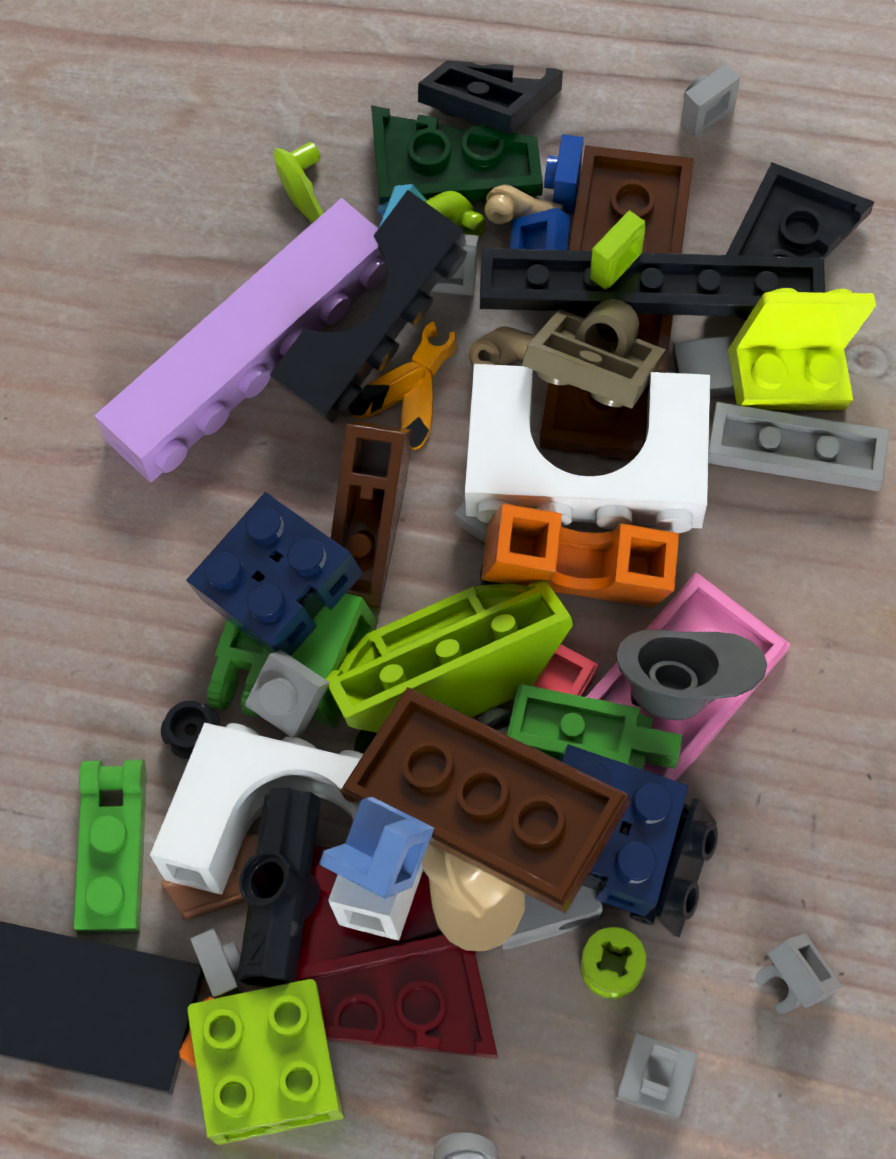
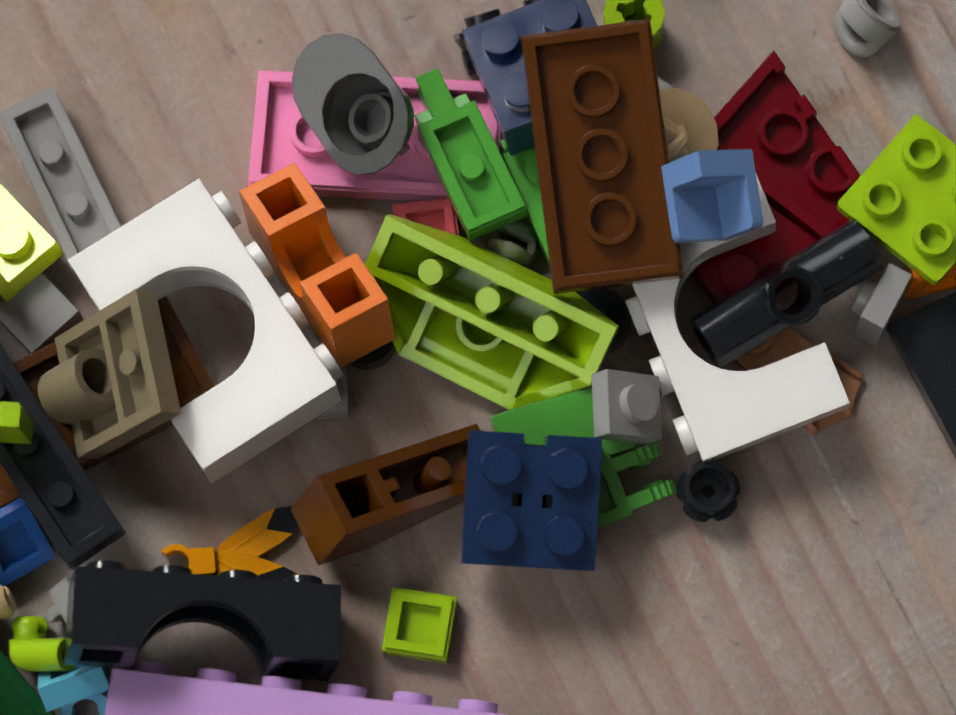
camera: 125 degrees left, 5 degrees up
(110, 849) = (857, 476): bright green plate -> none
(265, 466) = (419, 625): none -> lime tile
(500, 346) = (138, 501): tan arm -> none

